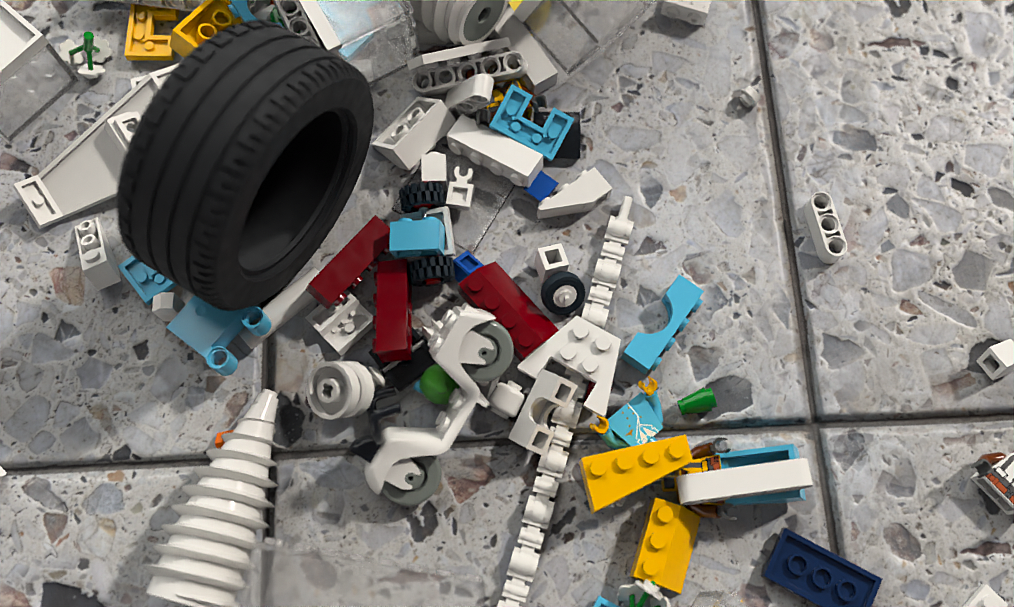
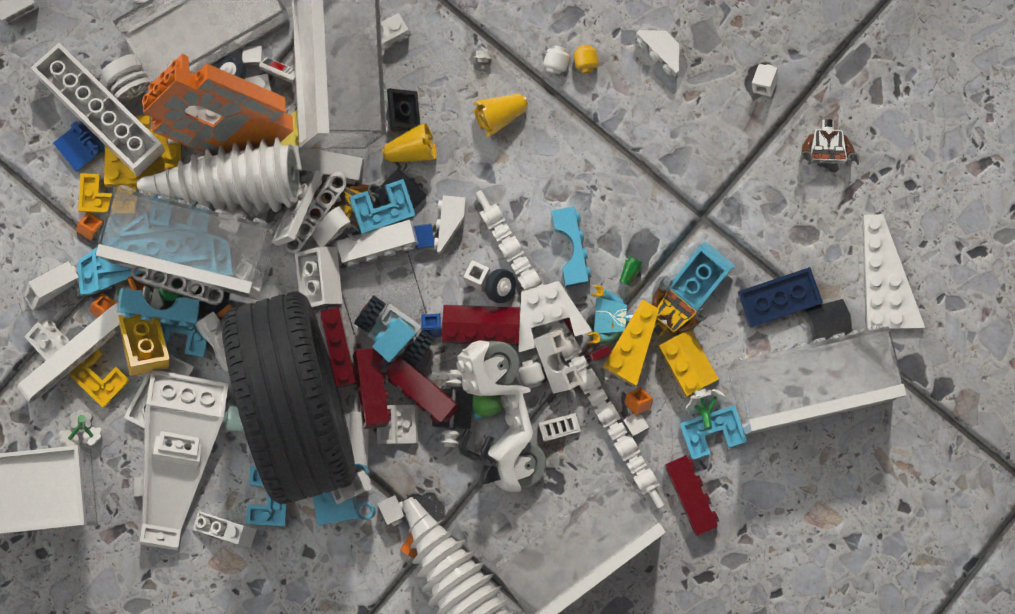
camera: 40 degrees left, 10 degrees up
(167, 305) = (302, 514): white piece -> none
(228, 323) = (359, 486): none -> white brick
(247, 387) = (392, 510): none -> white brick
(339, 389) = (442, 460): white wheel -> none
(365, 201) = (338, 347): none -> dark red brick
(434, 168) = (357, 290): white brick -> none
(460, 192) = (384, 287): white plate -> none
(465, 458) = (542, 425): none -> white slope
(556, 550) = (635, 424): none -> white slope
(581, 531) = (638, 401): none -> orange slope
(590, 443) = (599, 353): none -> dark red tile
(611, 105) = (411, 146): none -> yellow cone
(633, 71) = (403, 109): none -> black slope
(717, 150) = (498, 112): none -> yellow cone
(744, 481) = (694, 292): white beam -> none
(813, 159) = (556, 60): none -> white head
(828, 217) = (597, 88): white beam -> none
(842, 182) = (586, 59): none -> yellow head
(923, 238) = (661, 48): none -> white slope

